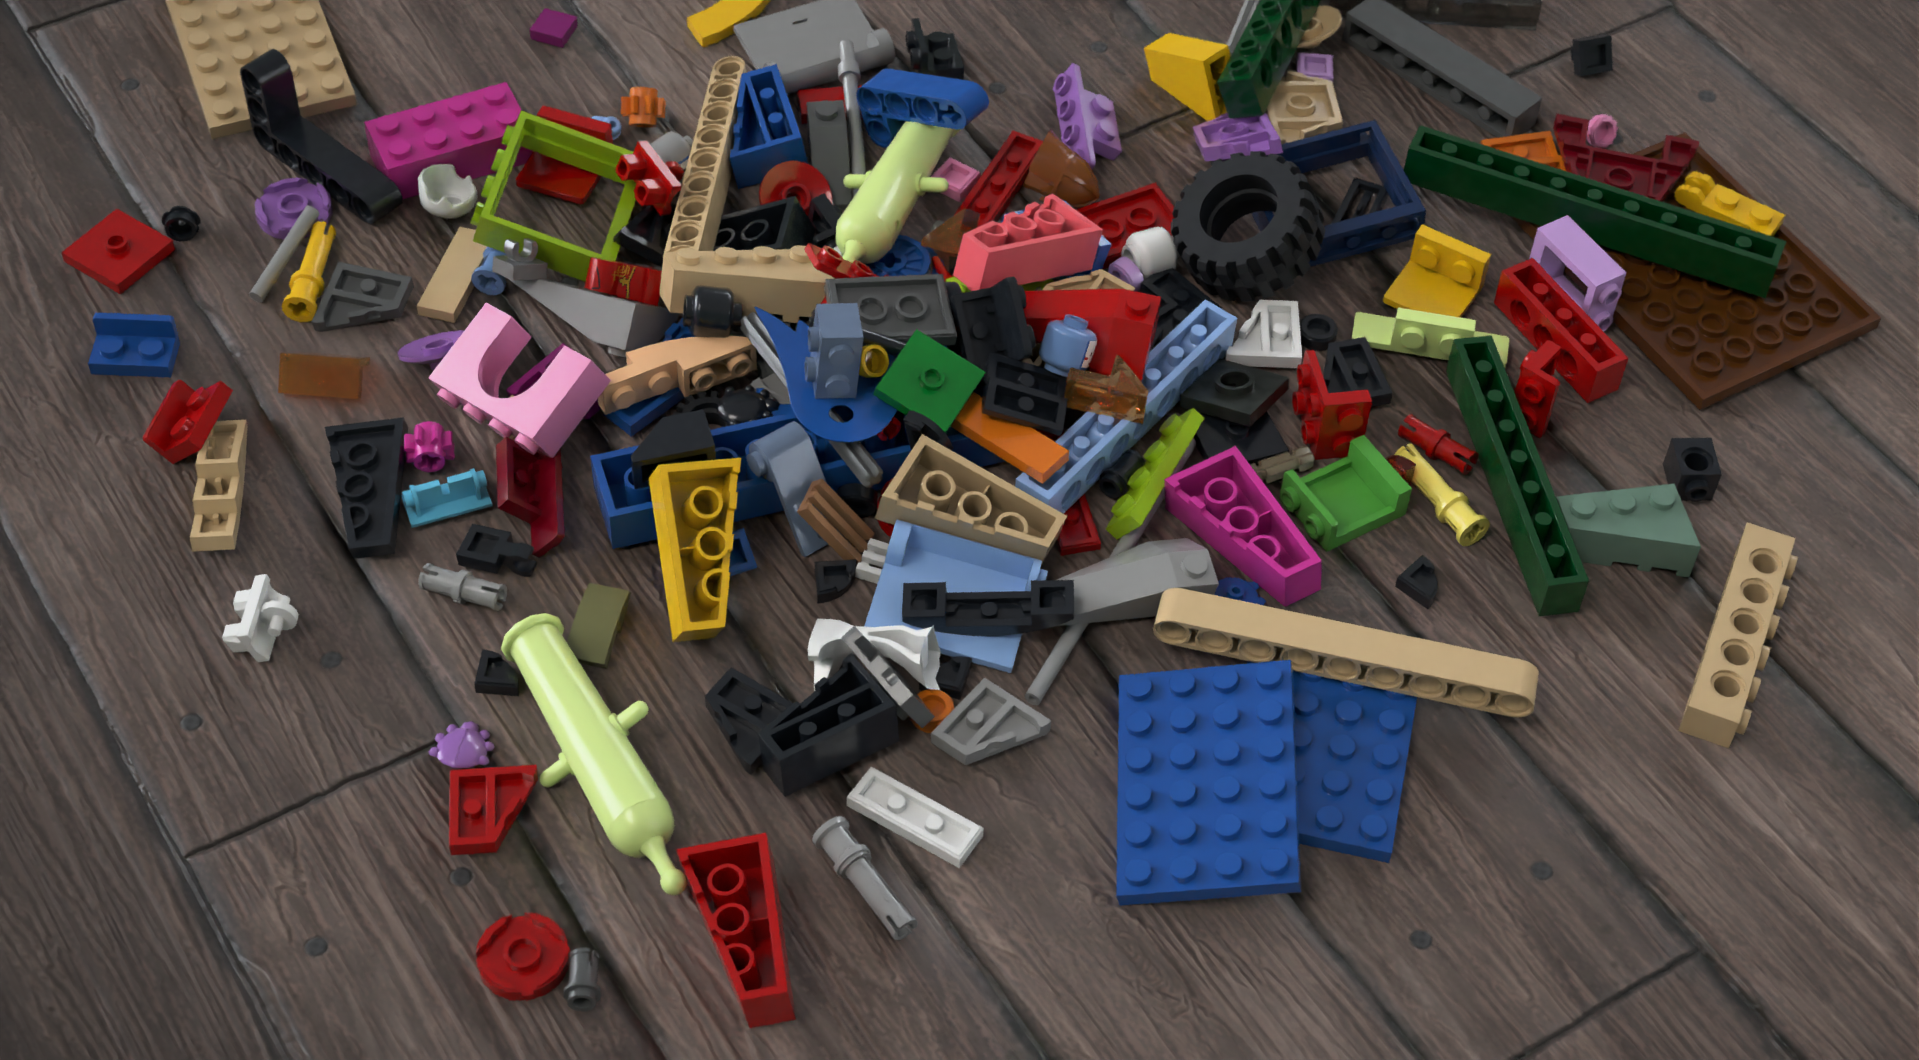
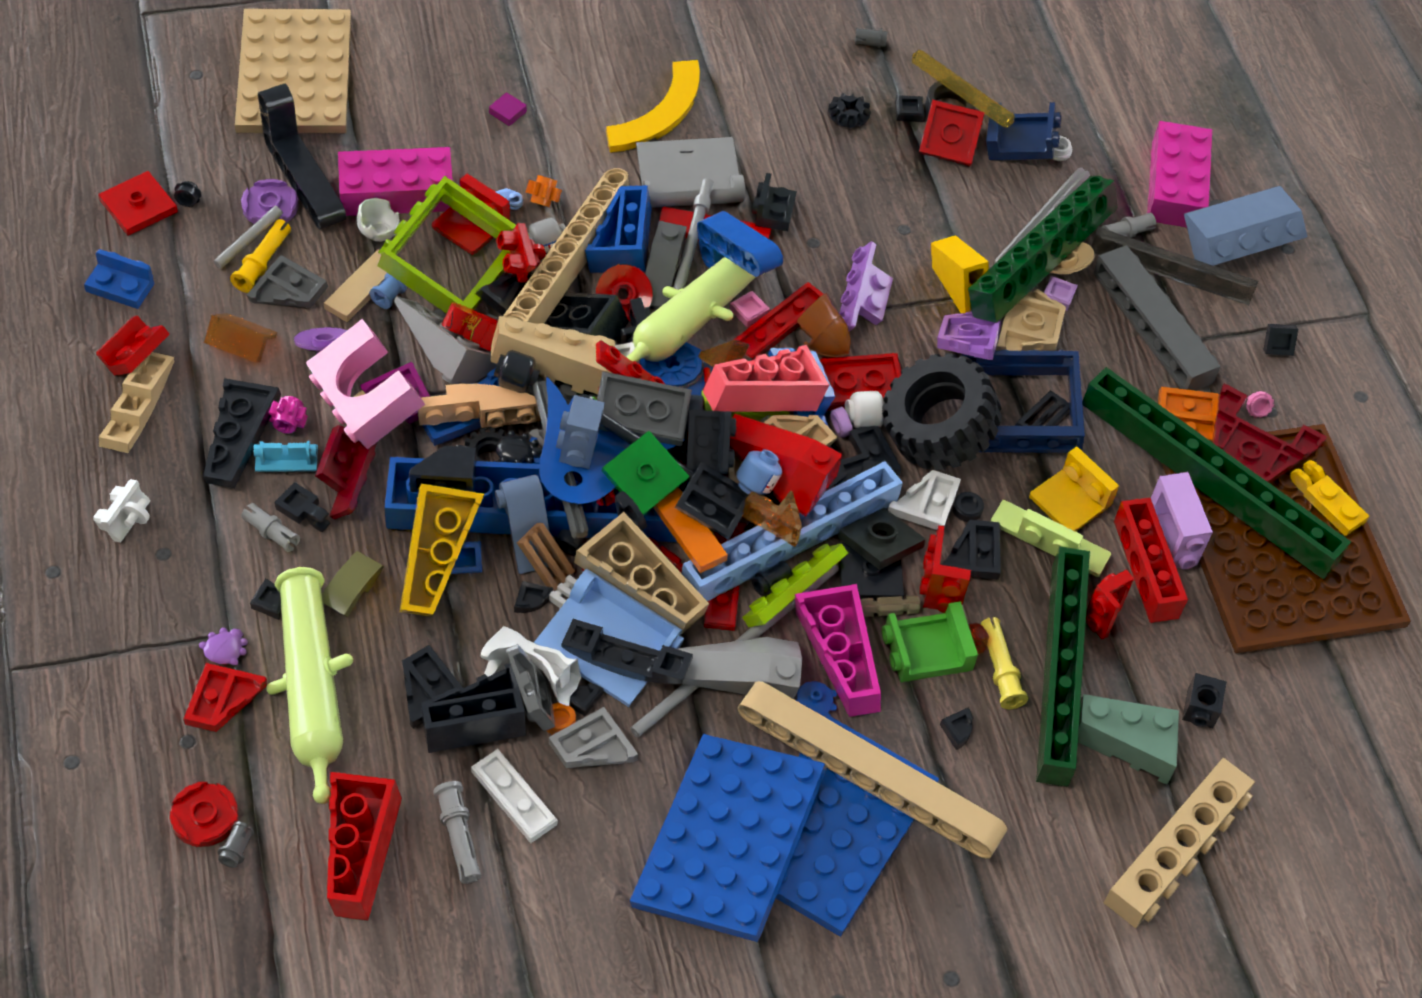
camera: 15 degrees right, 5 degrees up
(520, 265) = (402, 295): flat silver tile -> none
(873, 361) = (613, 445): yellow hinge -> none
(1438, 444) = (1018, 623): red pin -> none

